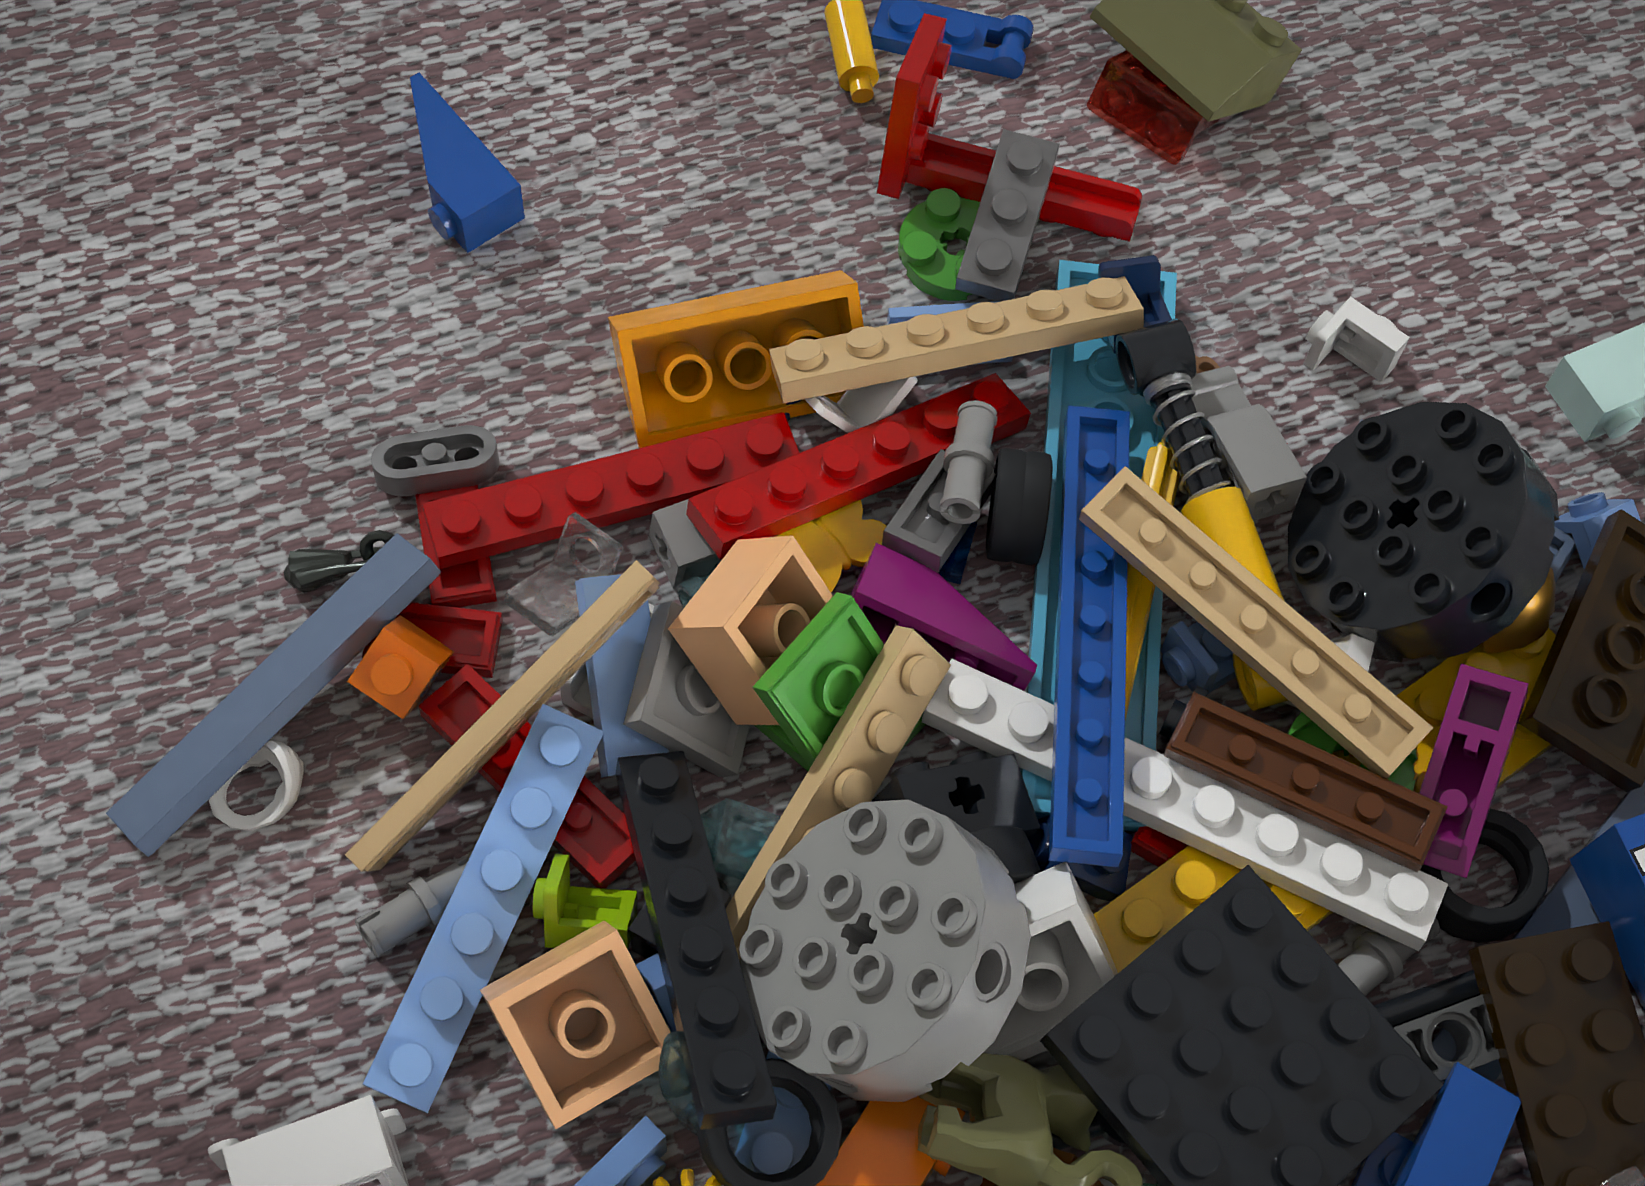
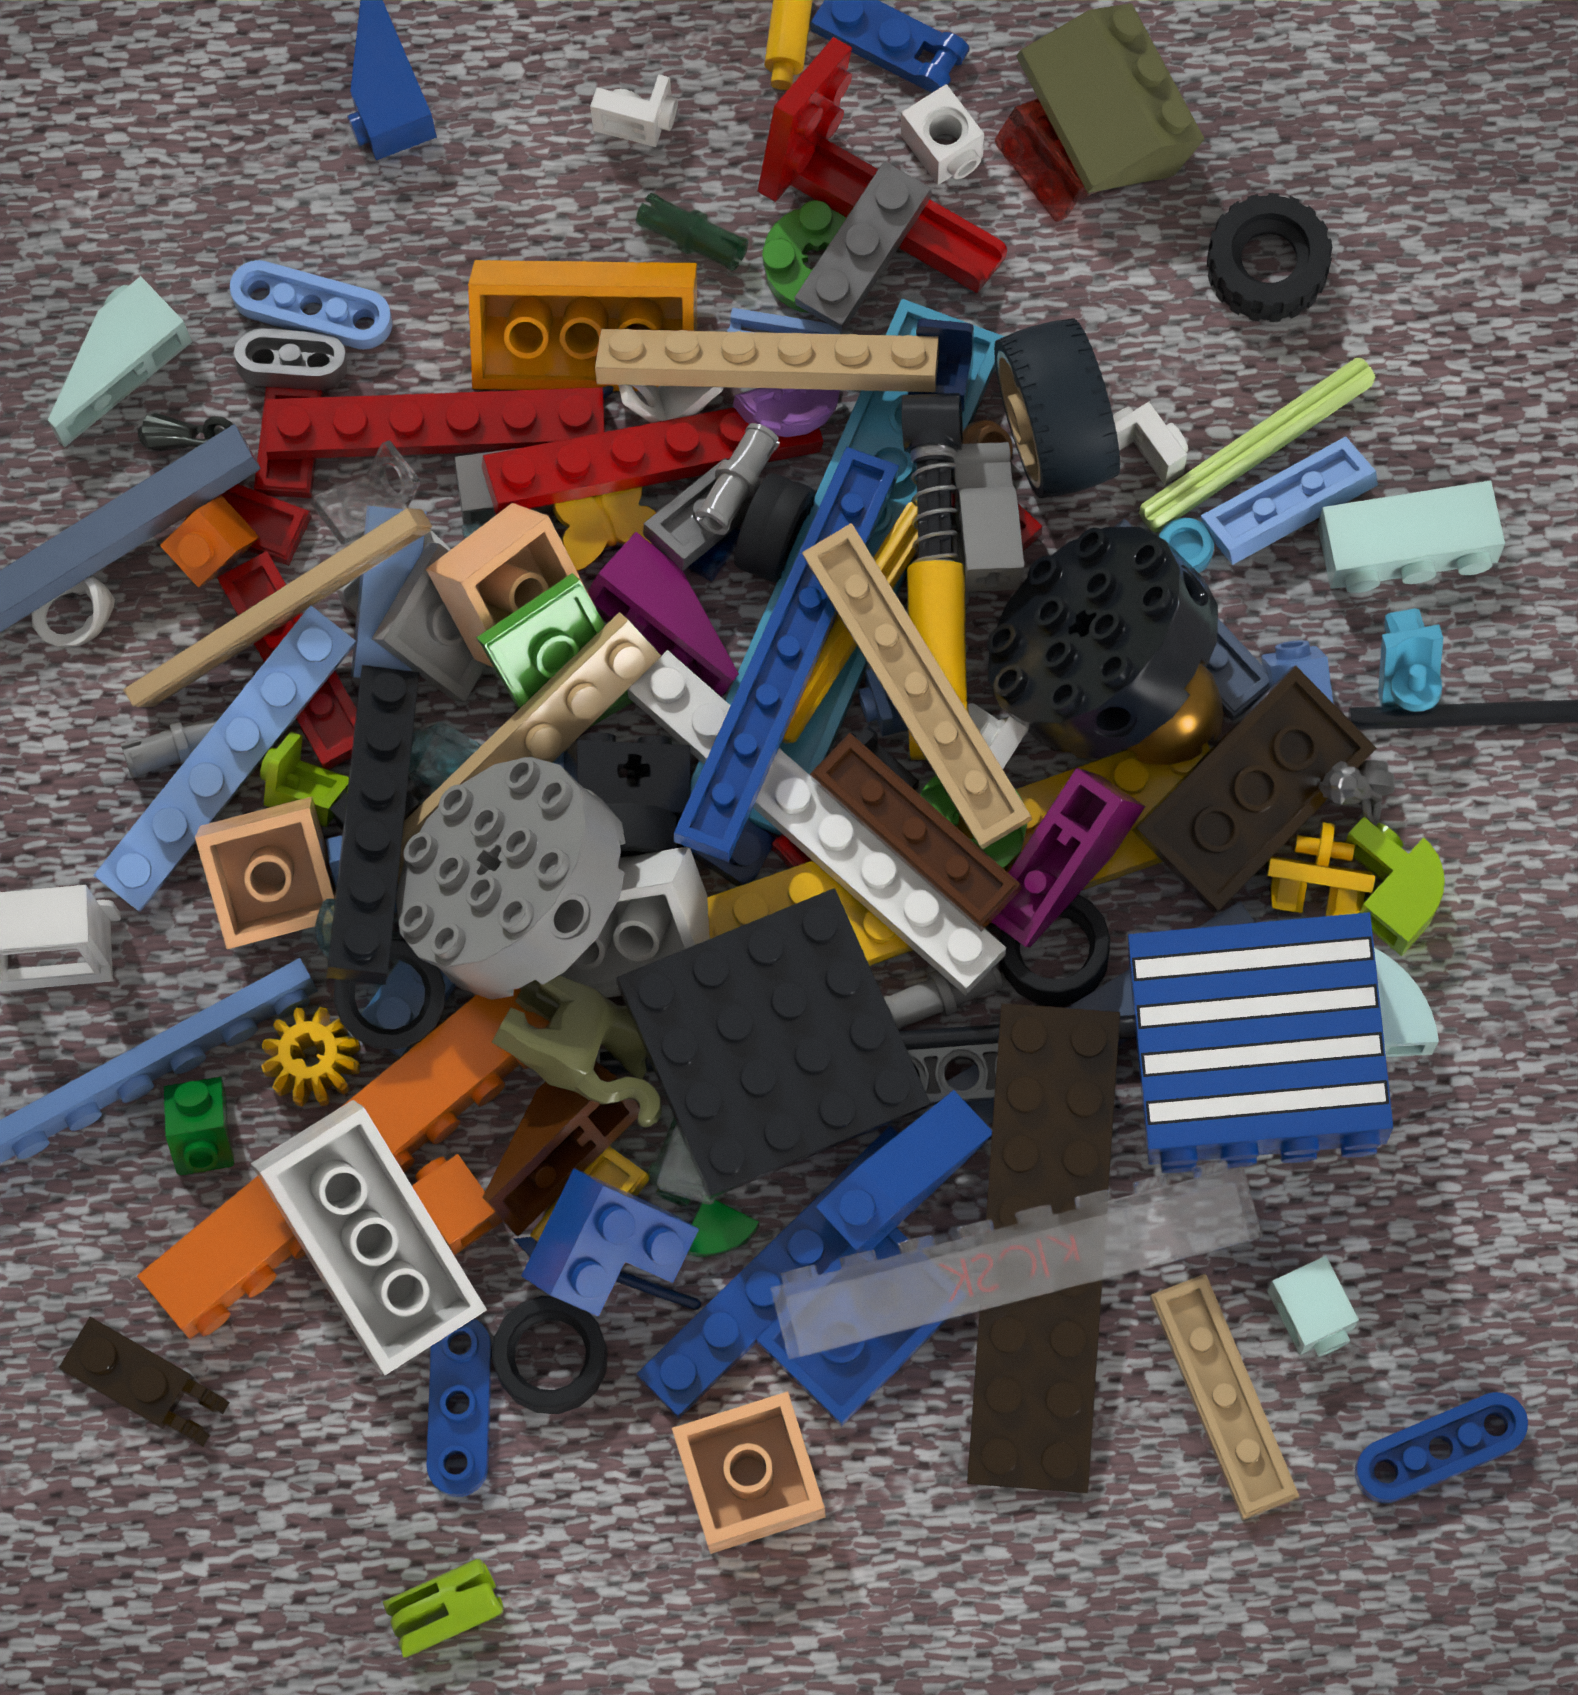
camera: 25 degrees right, 10 degrees up
(244, 491) = (122, 349): none -> light aqua slope
(417, 391) = (294, 289): none -> light blue plate
(724, 152) = (631, 117): none -> white bracket
(821, 246) = (692, 231): none -> clear green pin
(996, 382) = (787, 410): none -> medium lavender tile
(1041, 102) = (940, 115): none -> white brick
(1273, 314) = (1057, 407): none -> black wheel
(1408, 114) = (1269, 216): none -> black tyre
(1459, 319) = (1257, 444): none -> yellowish green axle
(1522, 357) = (1289, 500): none -> light blue plate

